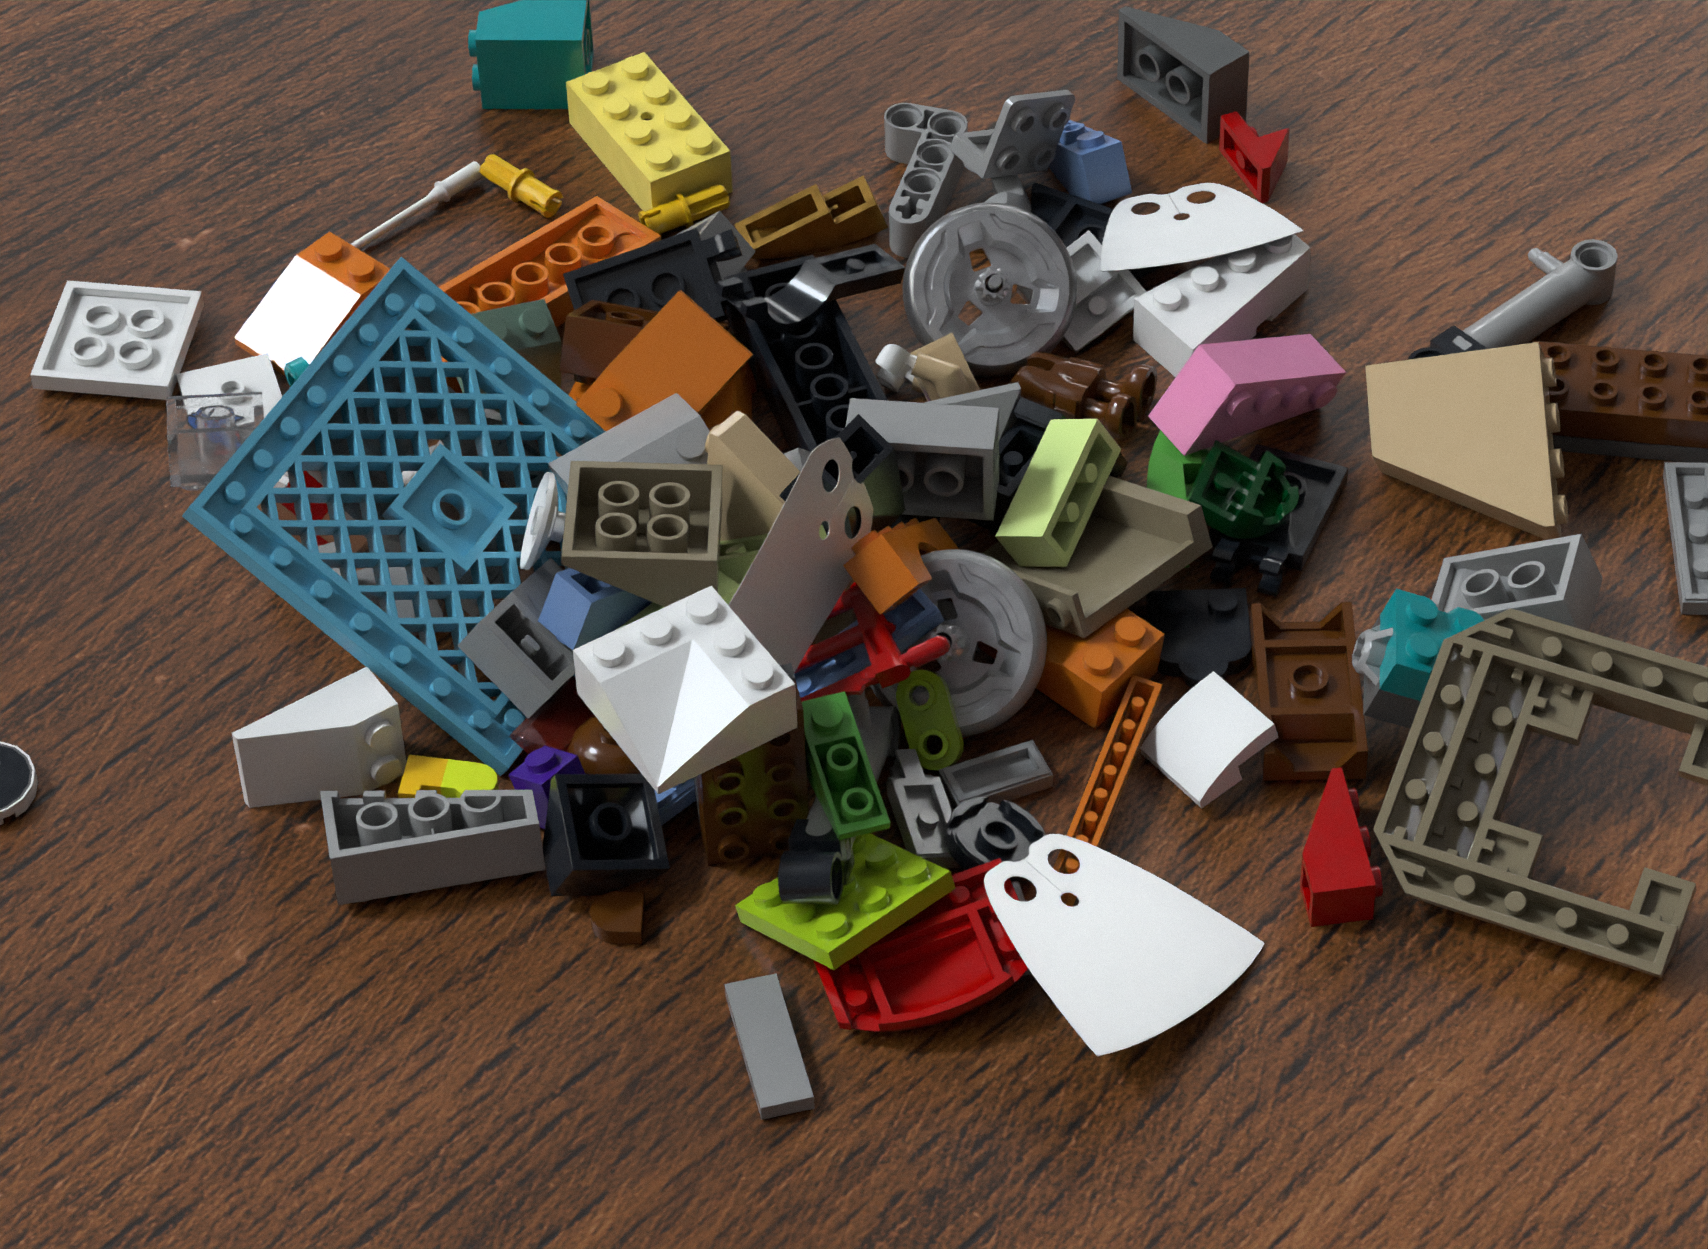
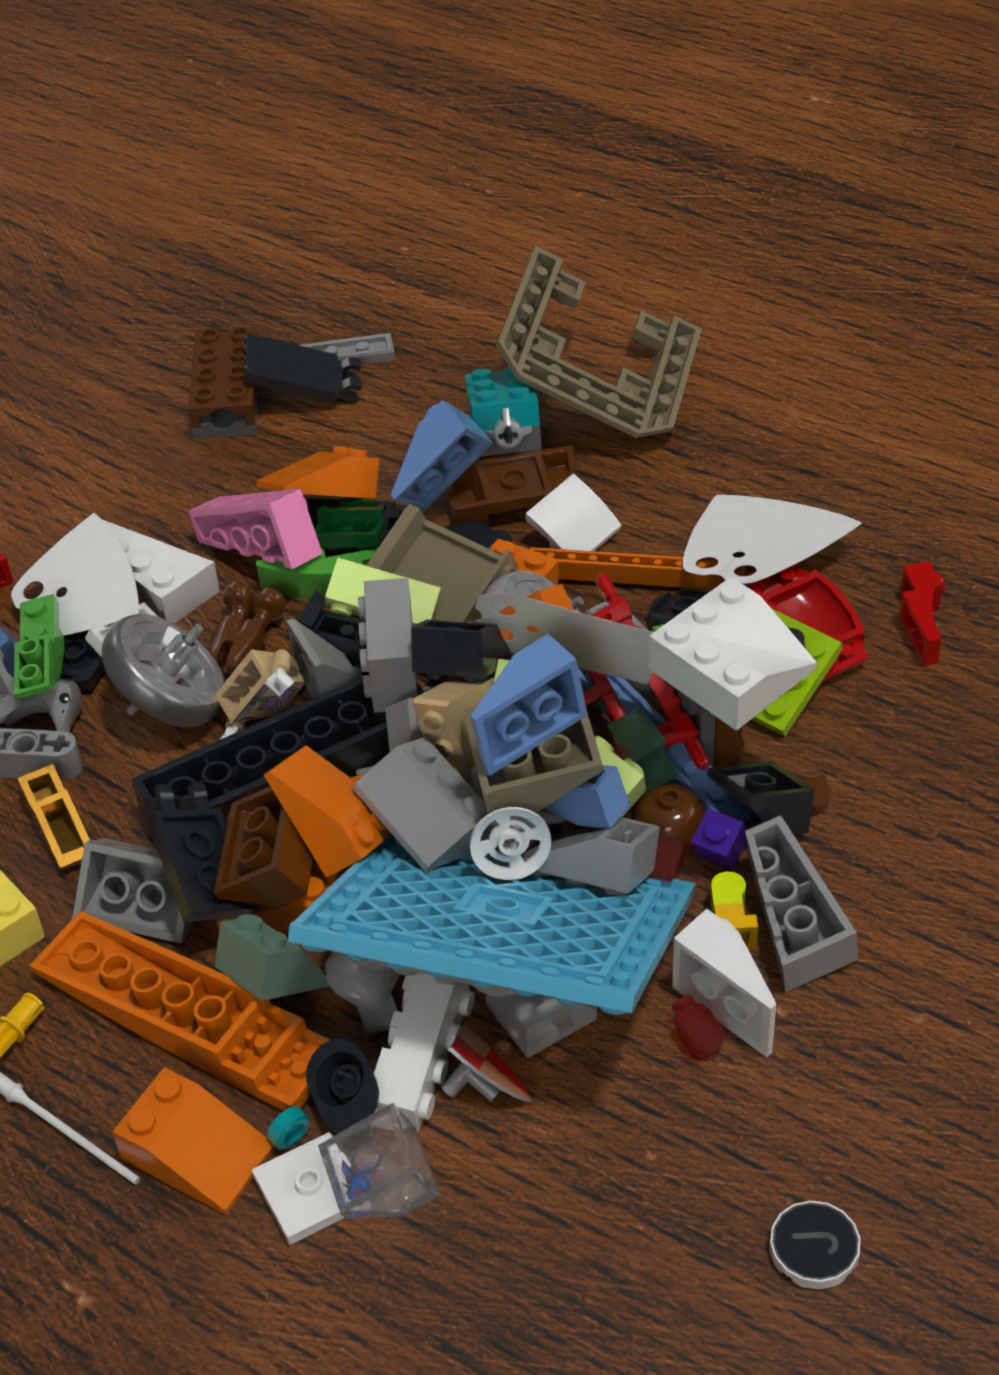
camera: 100 degrees left, 0 degrees up
(117, 340) = (244, 1303): white plate -> none
(654, 474) = (528, 703): none -> medium blue slope
(685, 209) = (44, 902): yellow axle -> none
(769, 1046) = (890, 697): light grey tile -> none
(816, 286) = (180, 758): black piece -> none
(911, 1105) = (921, 595): none -> red slope
(1045, 189) = (40, 649): none -> bright green slope
(1327, 561) = (438, 454): none -> medium blue slope
(1333, 462) = (335, 473): none -> orange slope
(1335, 863) = (648, 462): red slope -> none
(1474, 432) = (274, 423): tan slope -> none
(1539, 578) = (400, 403): light grey slope -> none
(1566, 288) = (188, 455): light grey piece -> none
(1619, 465) = (300, 370): none -> black tile

